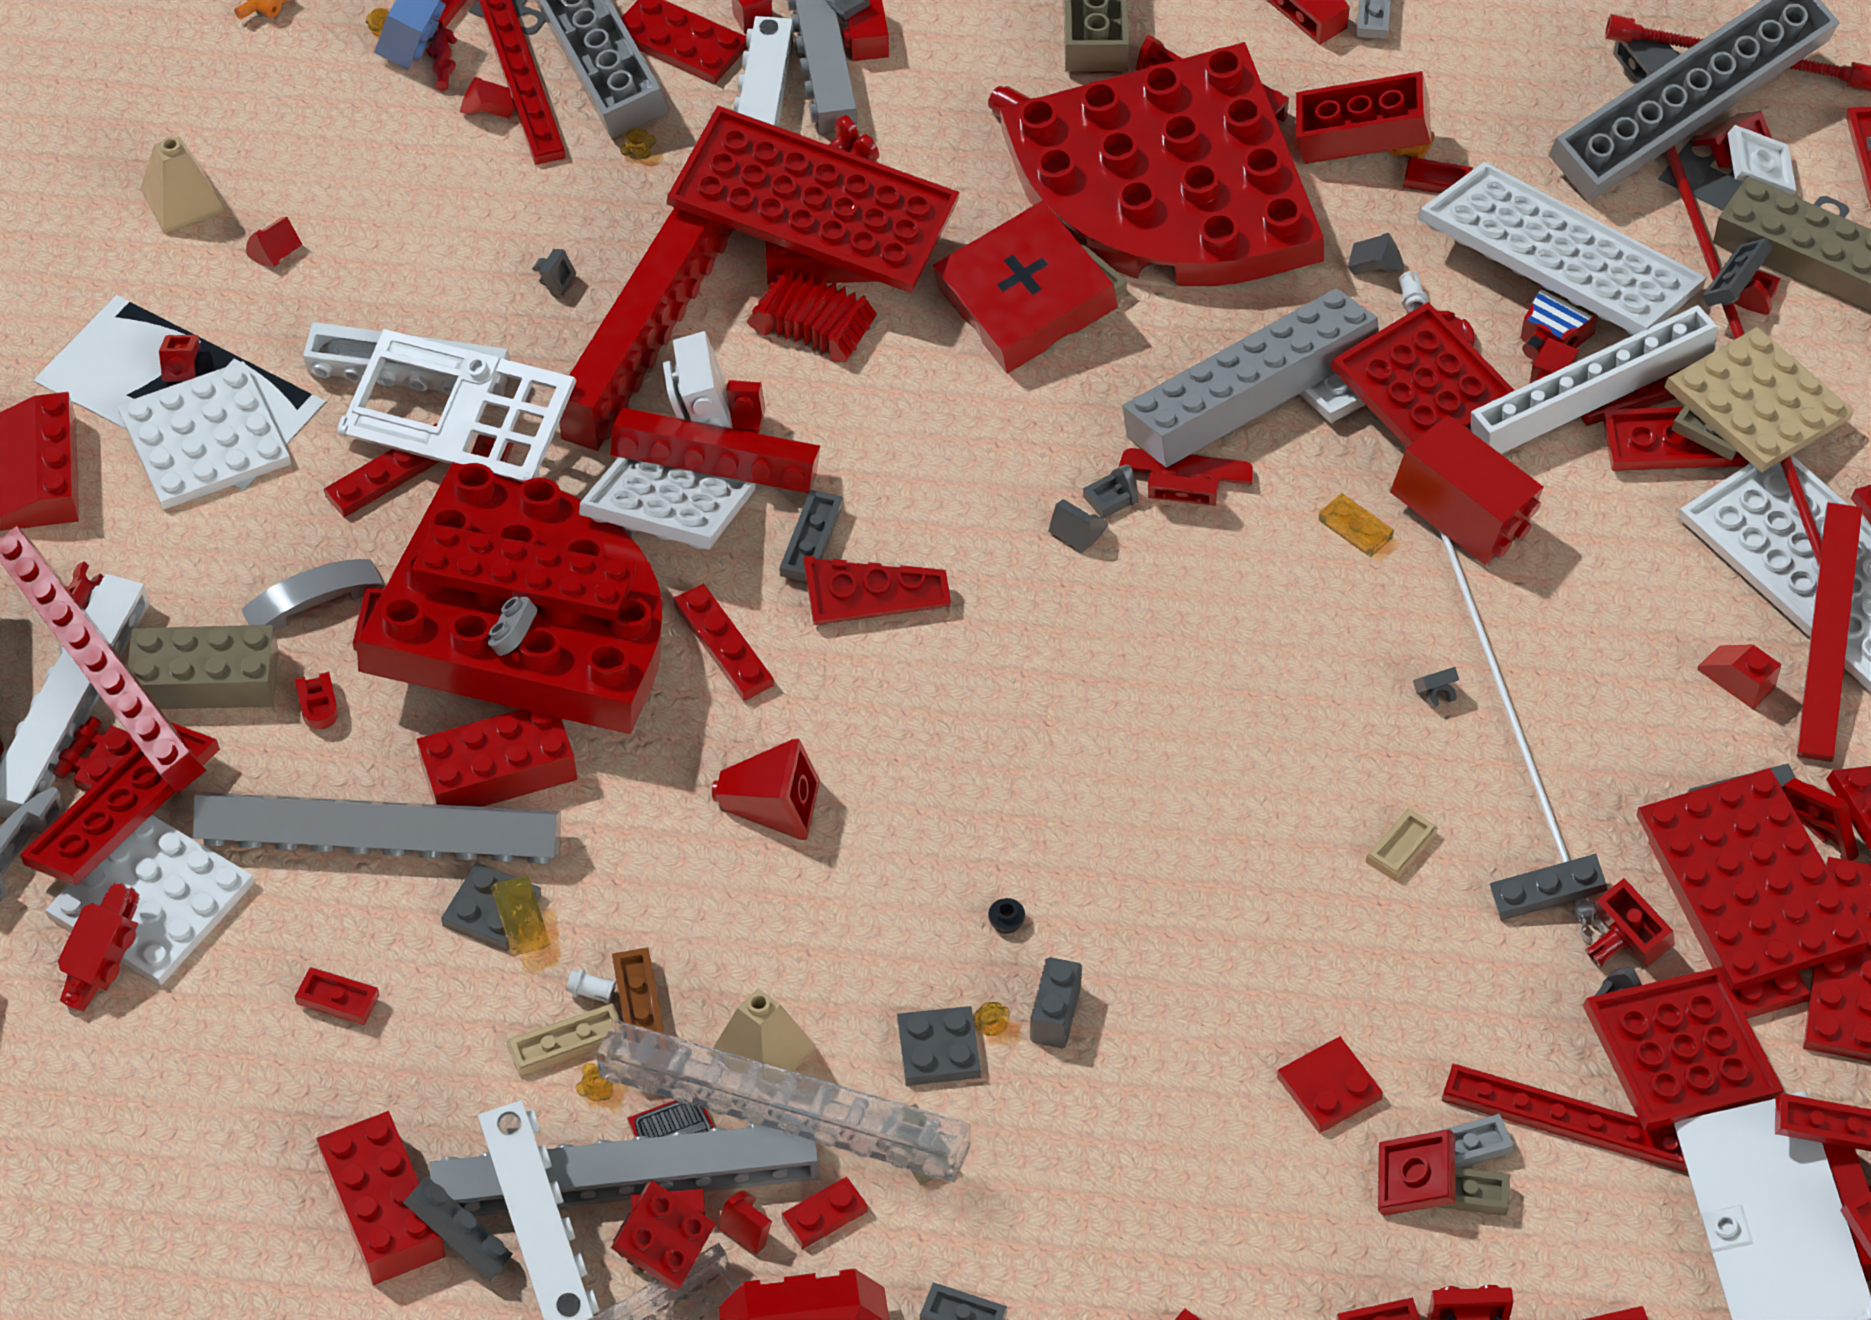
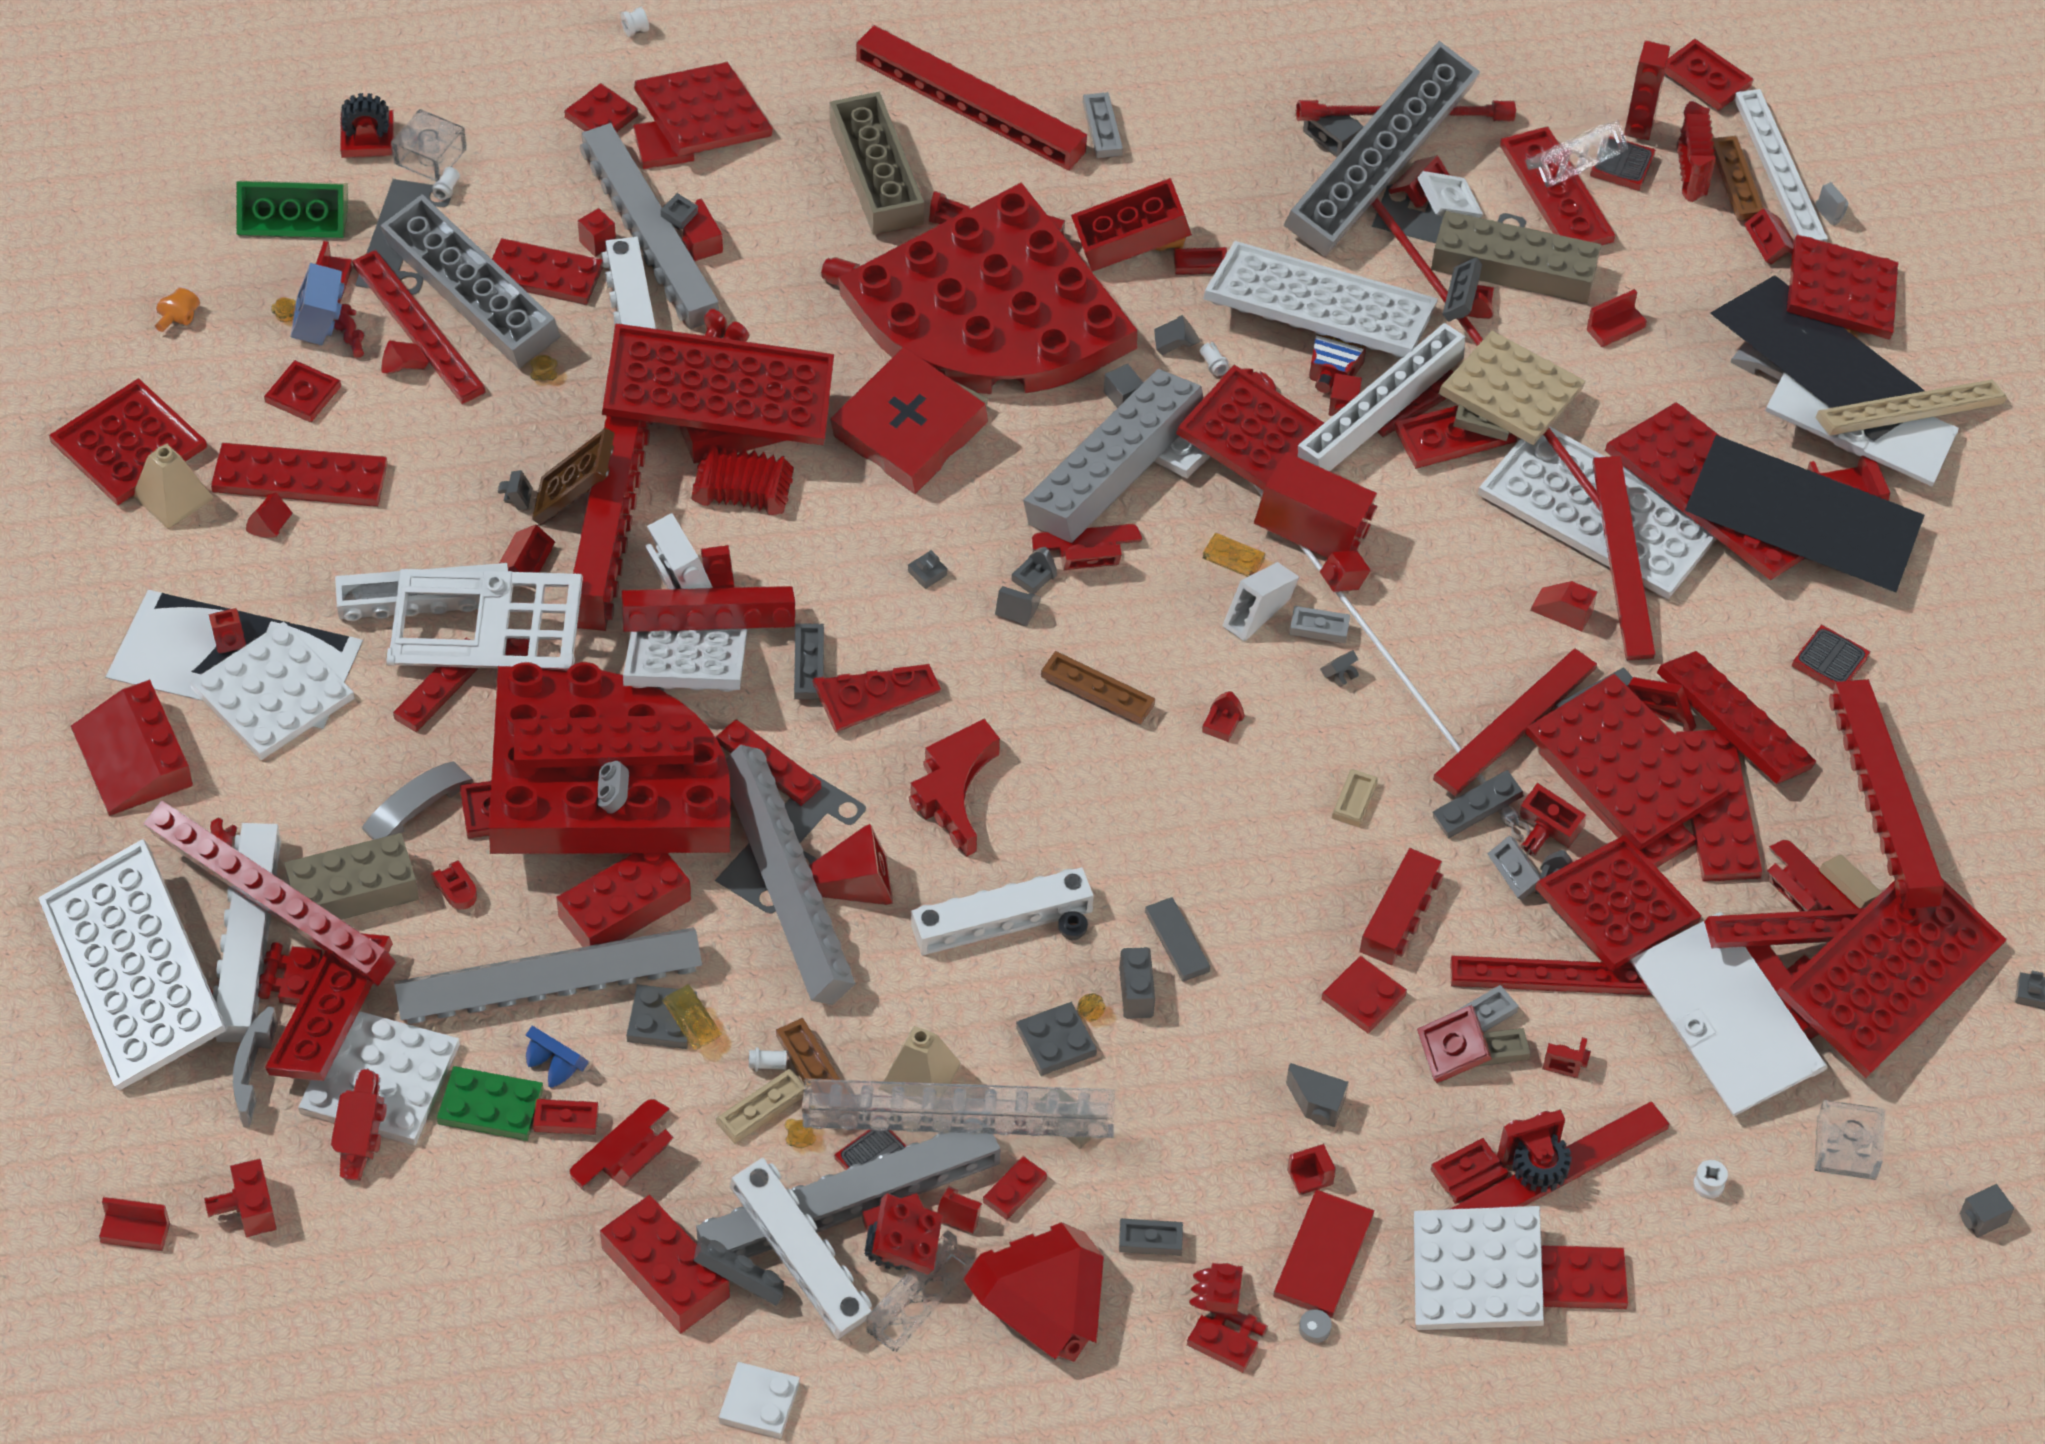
camera: 20 degrees left, 0 degrees up
(137, 116) = (119, 434): none -> red plate
(259, 958) = (489, 1103): none -> green plate
(327, 204) = (299, 474): none -> red plate
(361, 927) = (563, 1063): none -> blue tile
(366, 114) = (302, 391): none -> red tile
(391, 1050) = (626, 1147): none -> red plate
(542, 342) = (528, 550): none -> red panel
(615, 267) = (573, 476): none -> reddish brown plate
(690, 778) = (788, 877): none -> light grey brick
(702, 737) = (743, 873): none -> dark grey piece
(926, 878) = (1001, 910): none -> white piece
(928, 700) = (950, 770): none -> red arch
(988, 462) = (927, 569): none -> dark grey tile
(1126, 962) = (1177, 939): none -> dark grey tile
(1137, 643) = (1098, 687): none -> dark orange plate
(1187, 1282) = (1311, 1169): none -> red panel
(1228, 1193) = (1317, 1094): none -> dark grey slope
(1275, 711) = (1223, 716): none -> red tile
(1289, 295) = (1121, 384): none -> dark grey brick
(1365, 581) = (1259, 599): none -> white slope
(1410, 989) = (1401, 906): none -> red brick
(1429, 628) = (1319, 624): none -> light grey plate
(1480, 571) = (1345, 571): none -> red brick
(1550, 1228) = (1566, 1060): none -> red bracket
(1568, 974) = (1515, 867): none -> light grey plate
(1621, 801) = (1514, 721): none -> red tile

